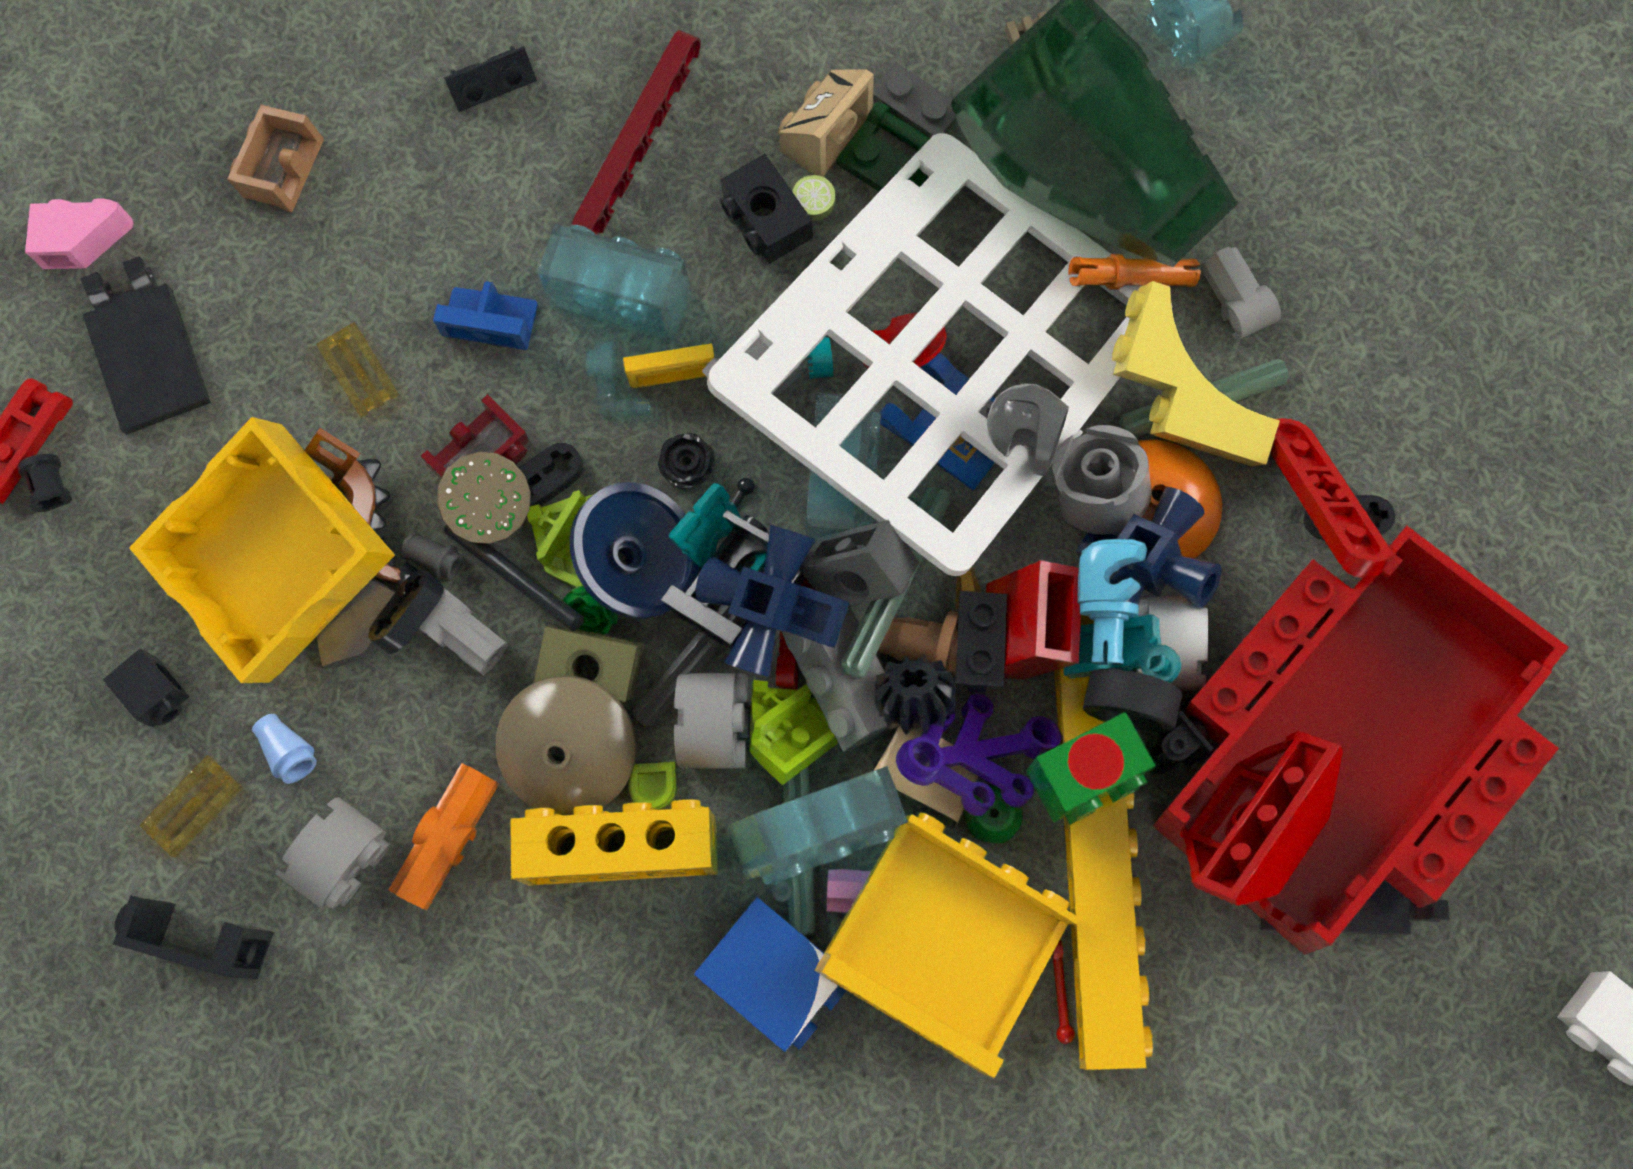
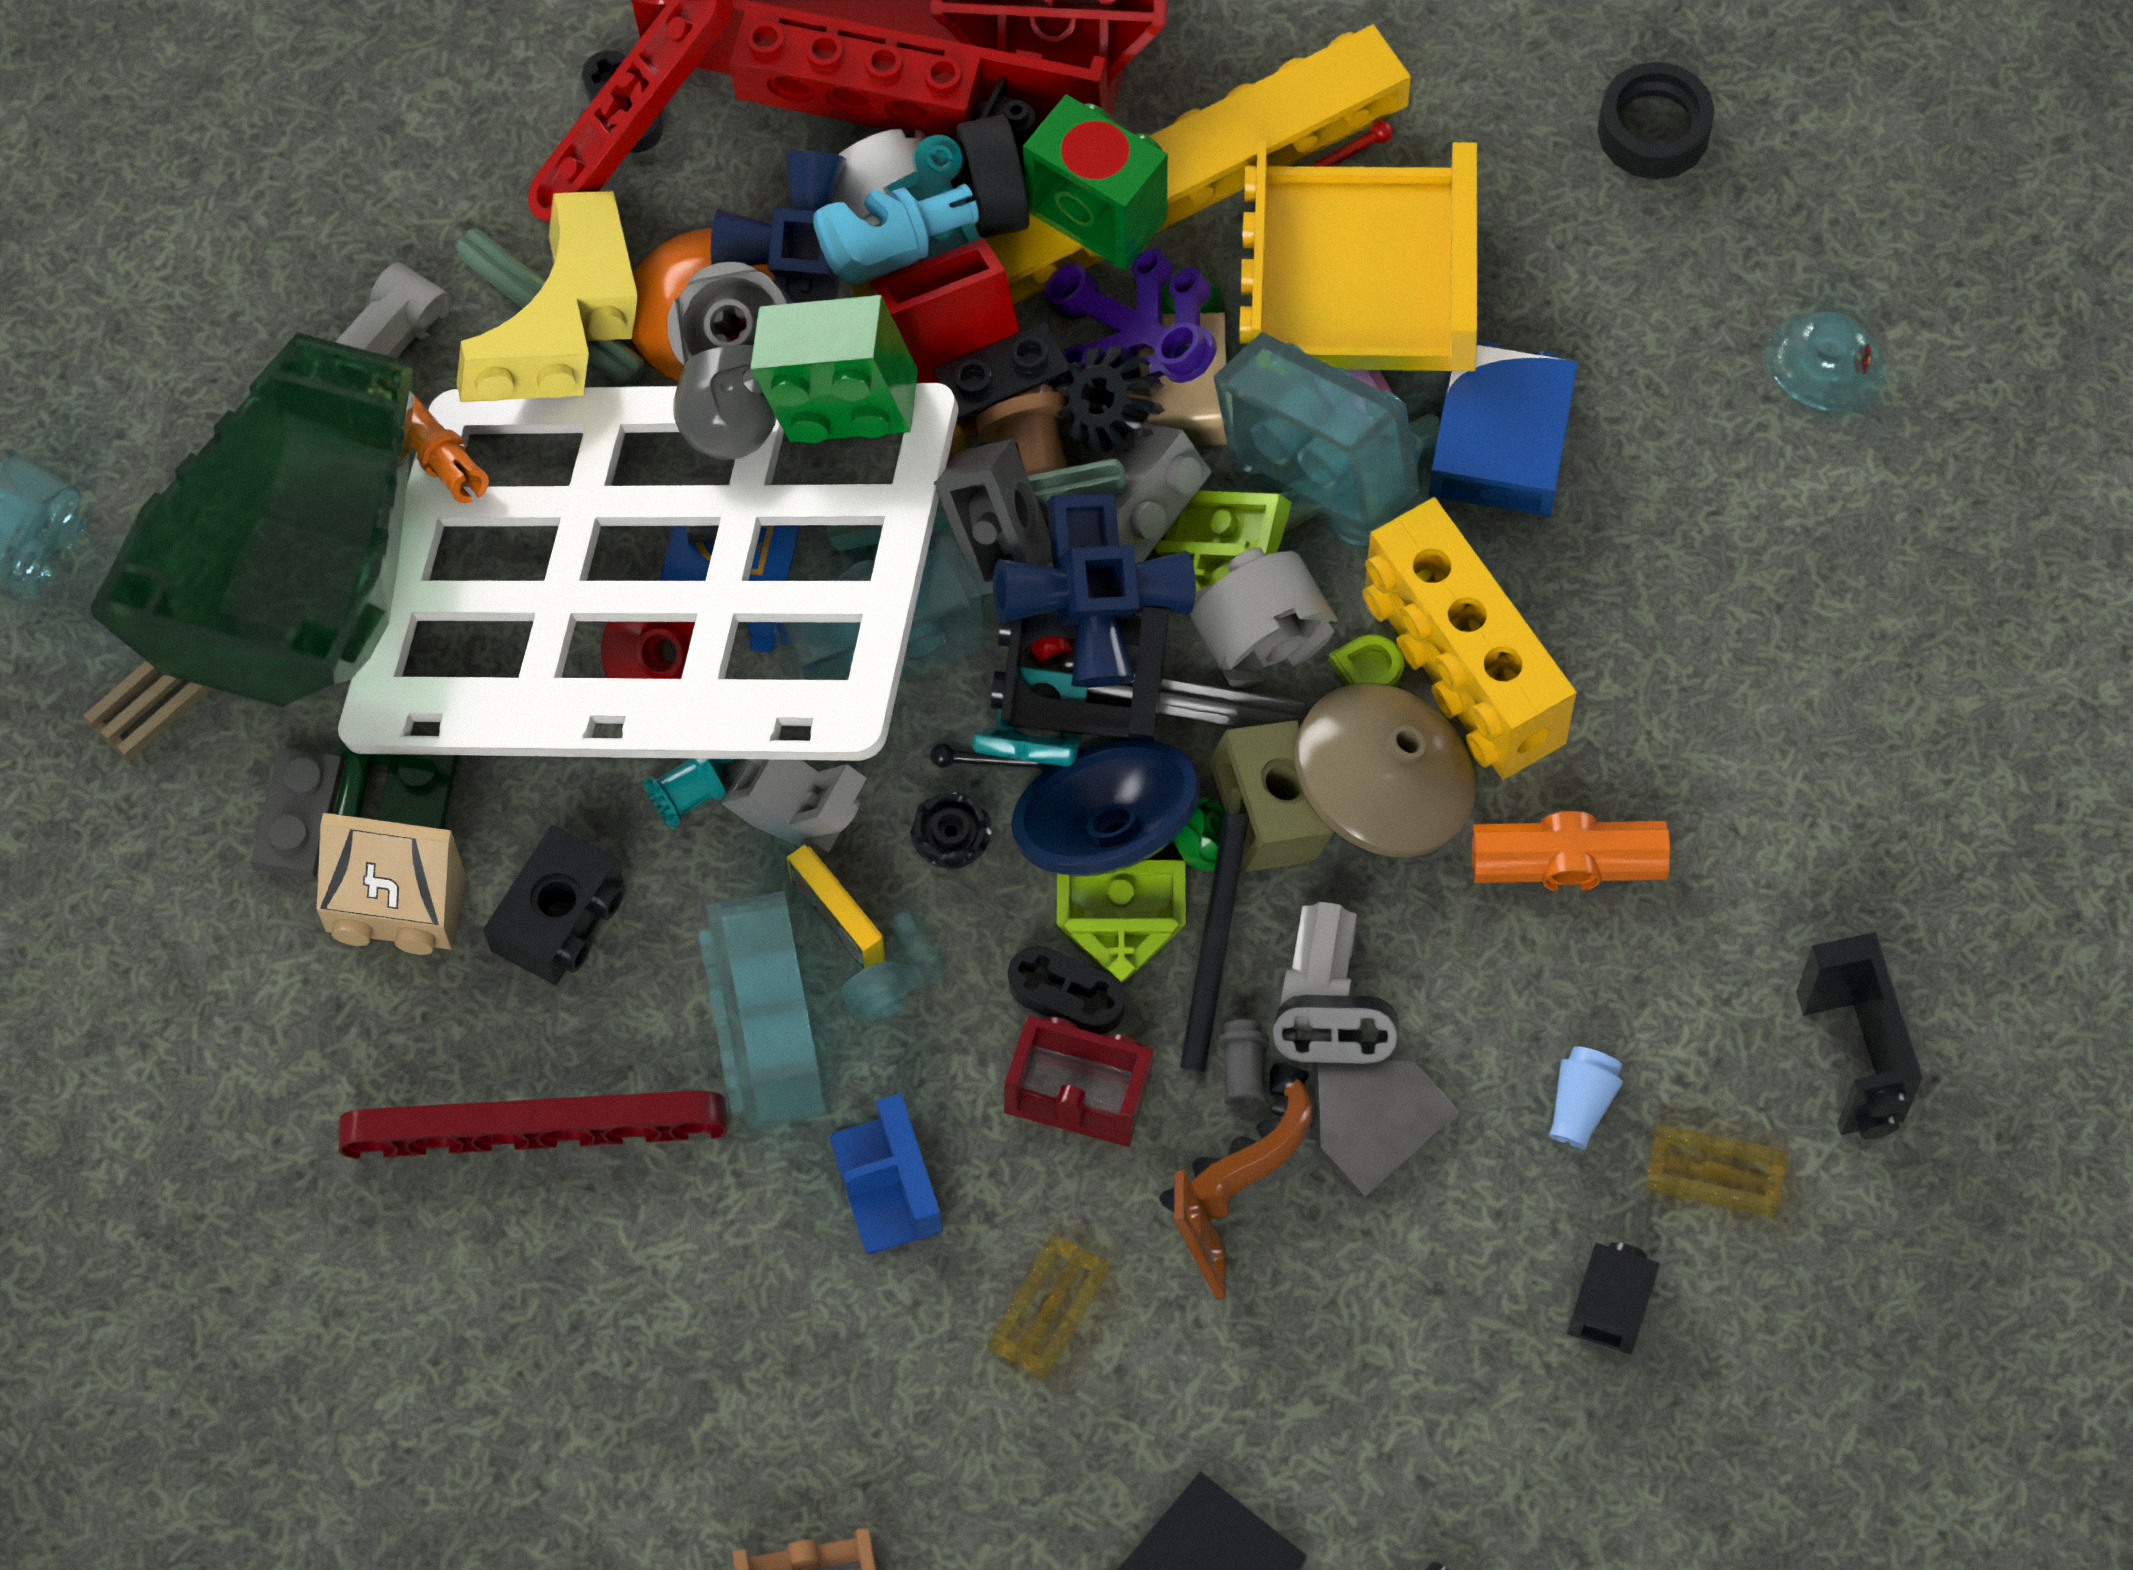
camera: 120 degrees left, 10 degrees down
(261, 551) = (1365, 1235): yellow tile -> none
(332, 854) = (1669, 941): light grey brick -> none
(483, 497) = (1141, 1014): dark tan tile -> none
(491, 78) = (552, 1387): black hinge -> none
(815, 196) = (497, 865): yellowish green tile -> none
(1001, 487) = (834, 369): none -> green brick

